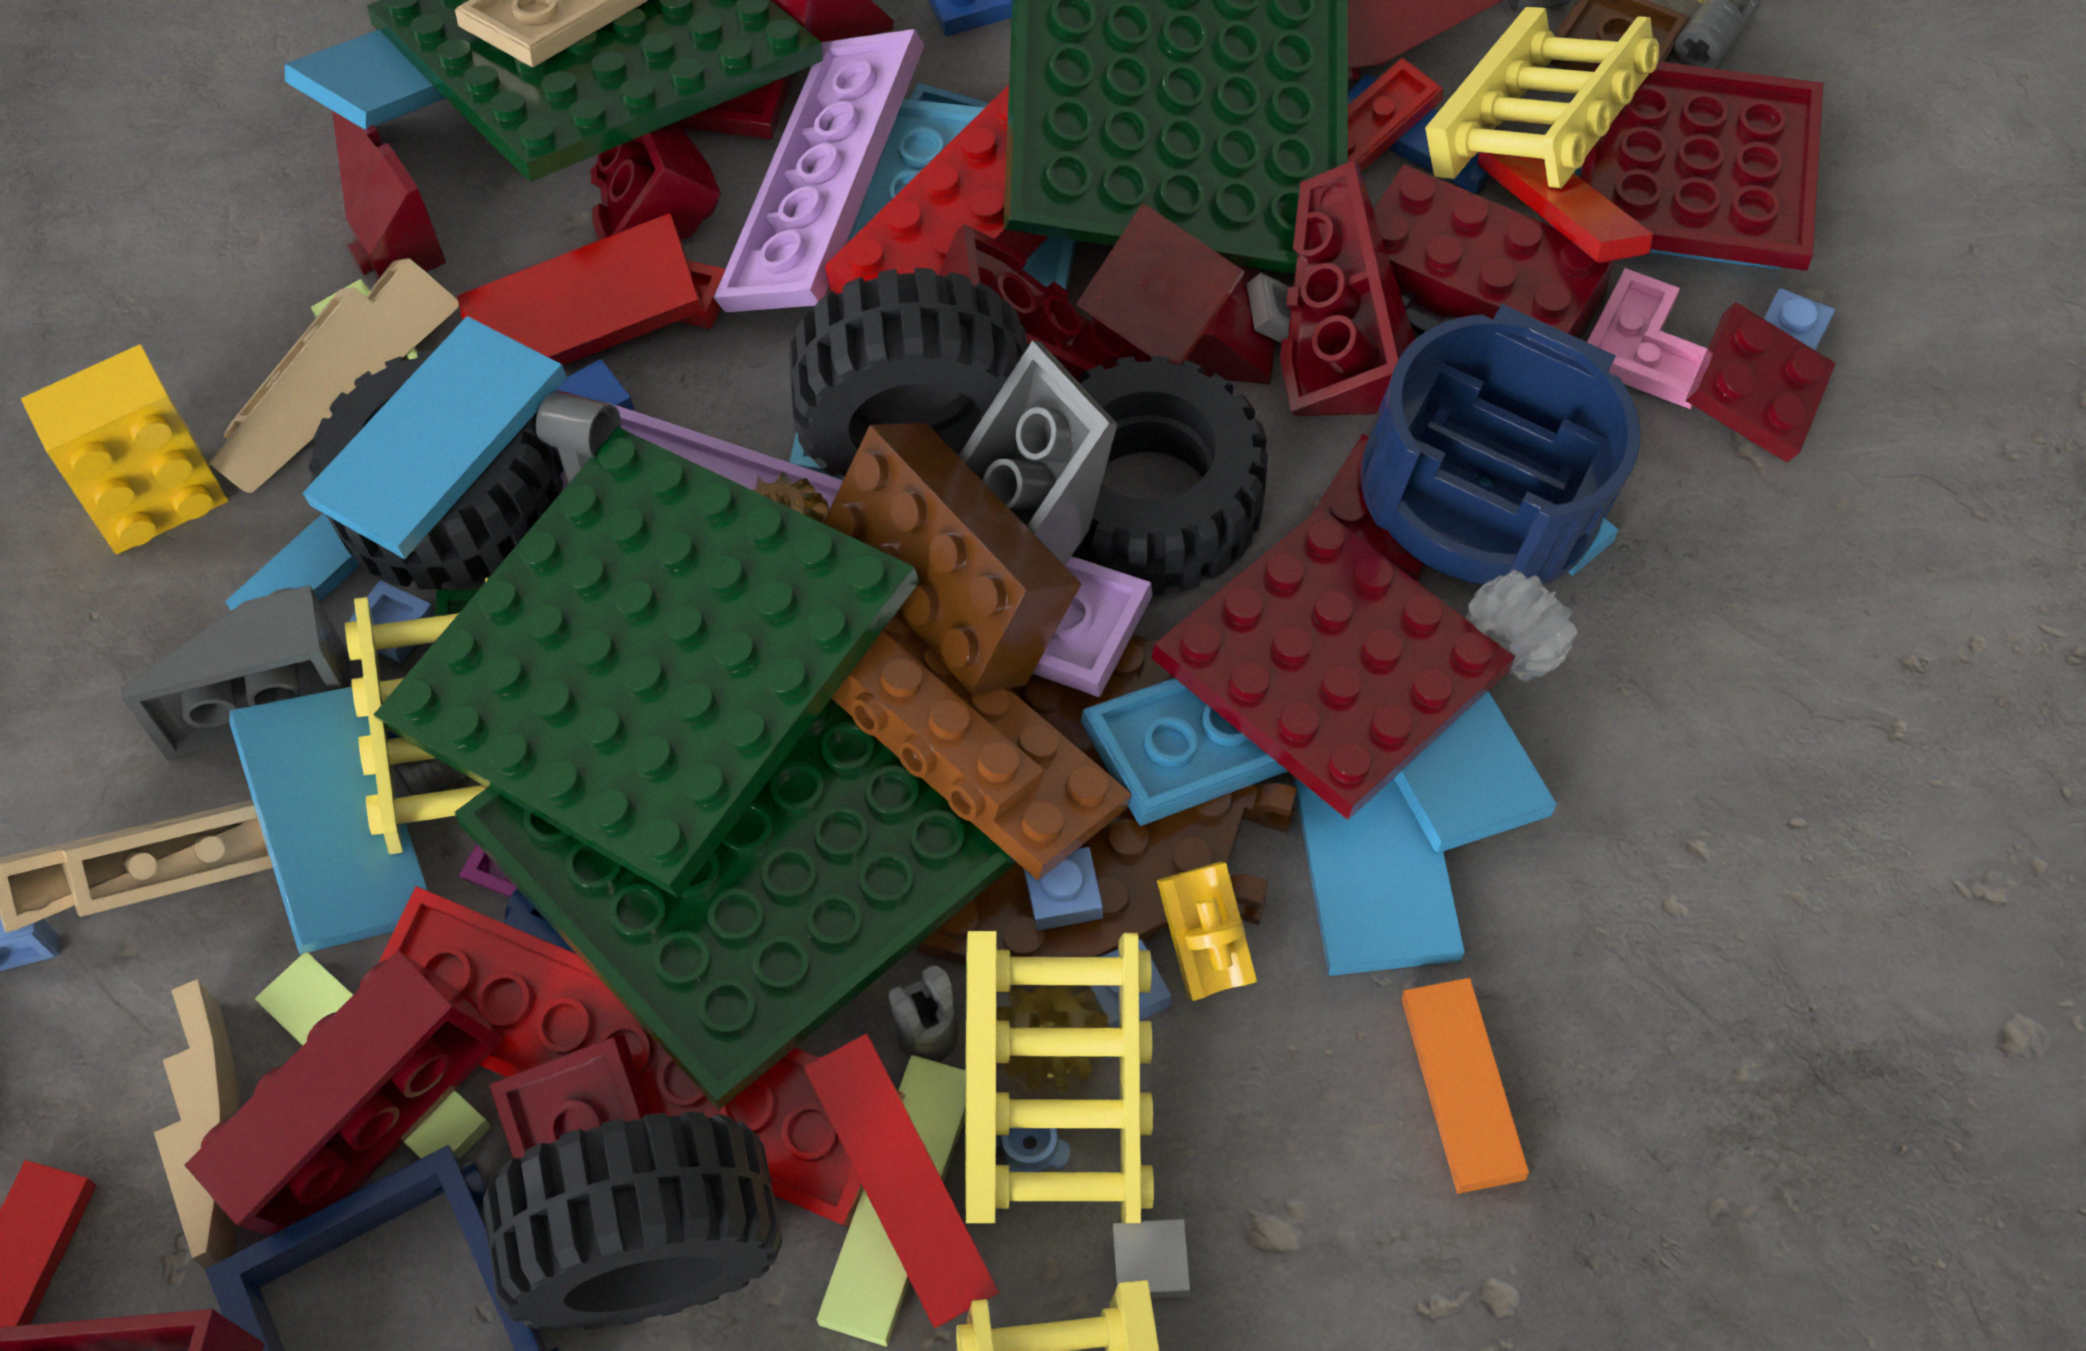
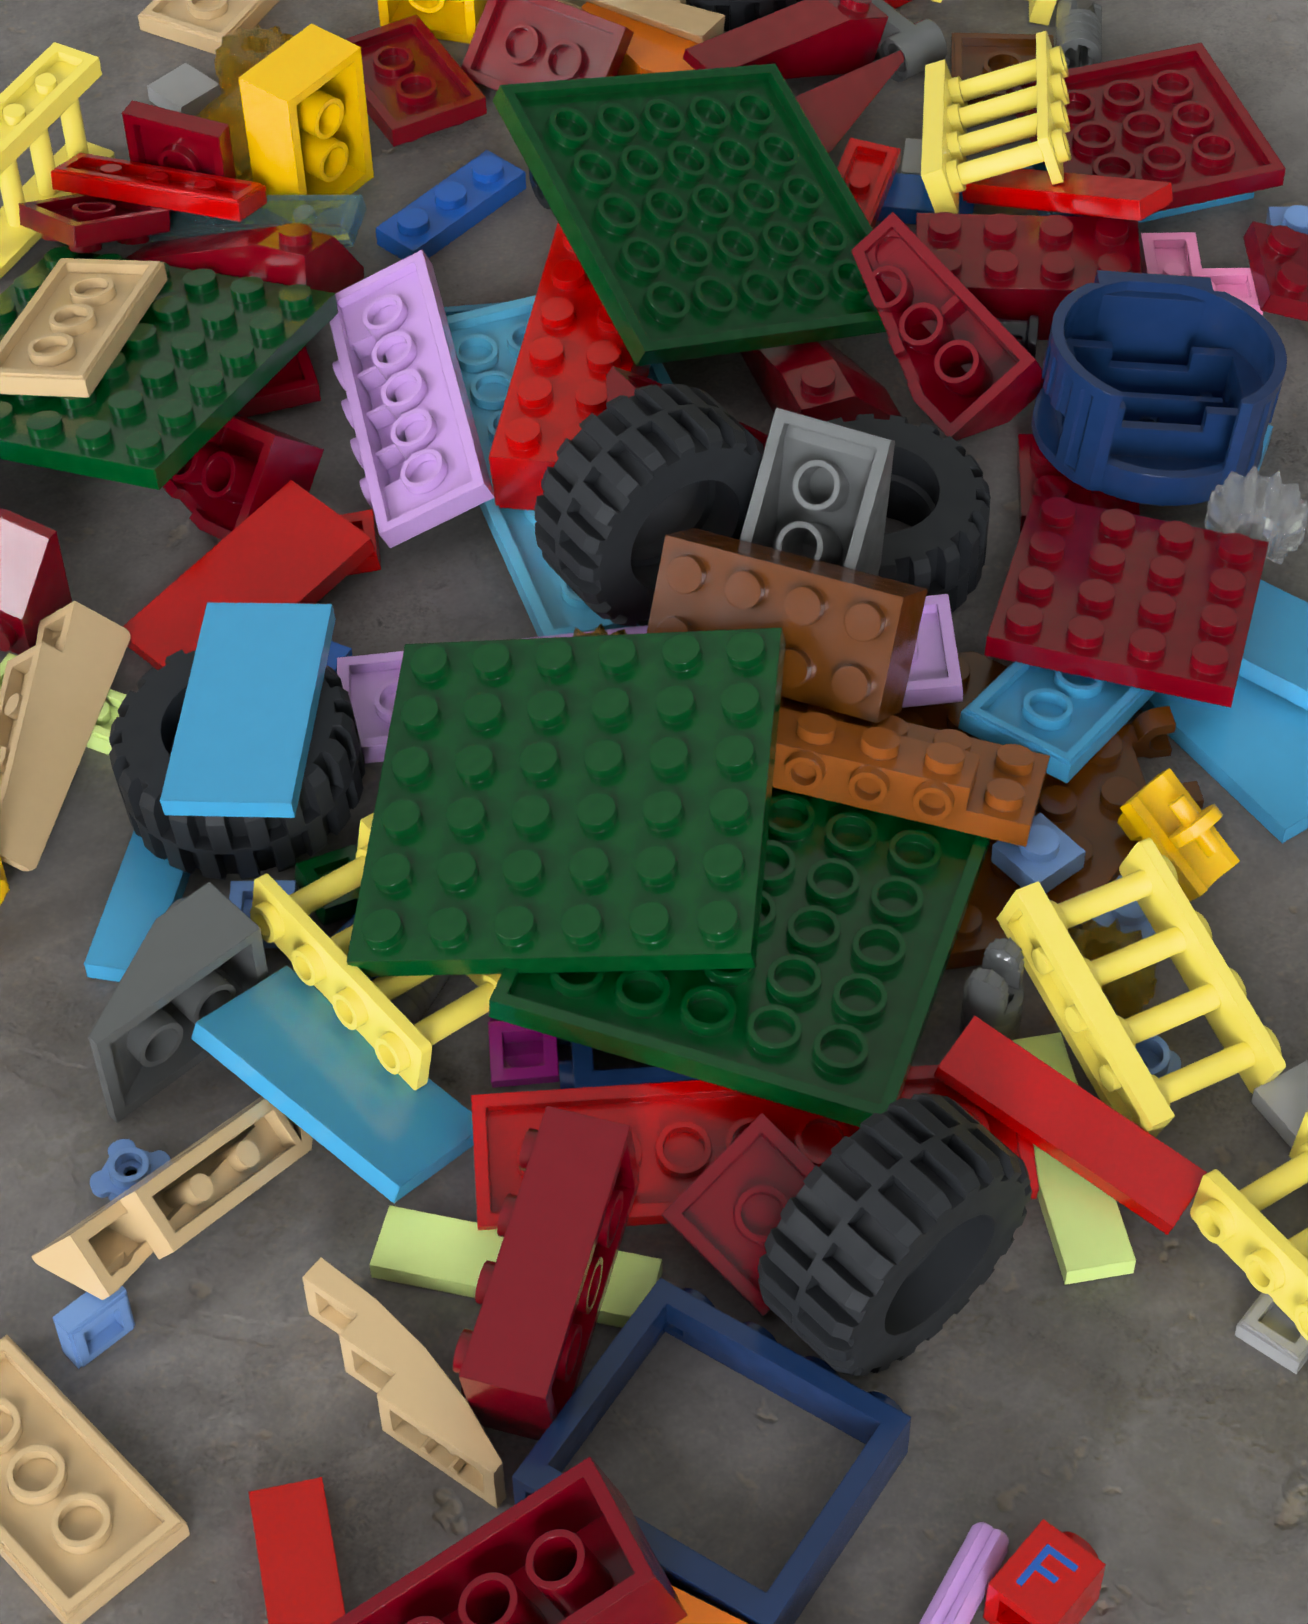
camera: 30 degrees left, 10 degrees down
(137, 799) = (122, 1158): none -> medium blue plate
(575, 427) = (371, 665): dark grey piece -> none
(1160, 287) = (794, 363): clear red plate -> none
(1269, 306) = (877, 366): light grey tile -> none

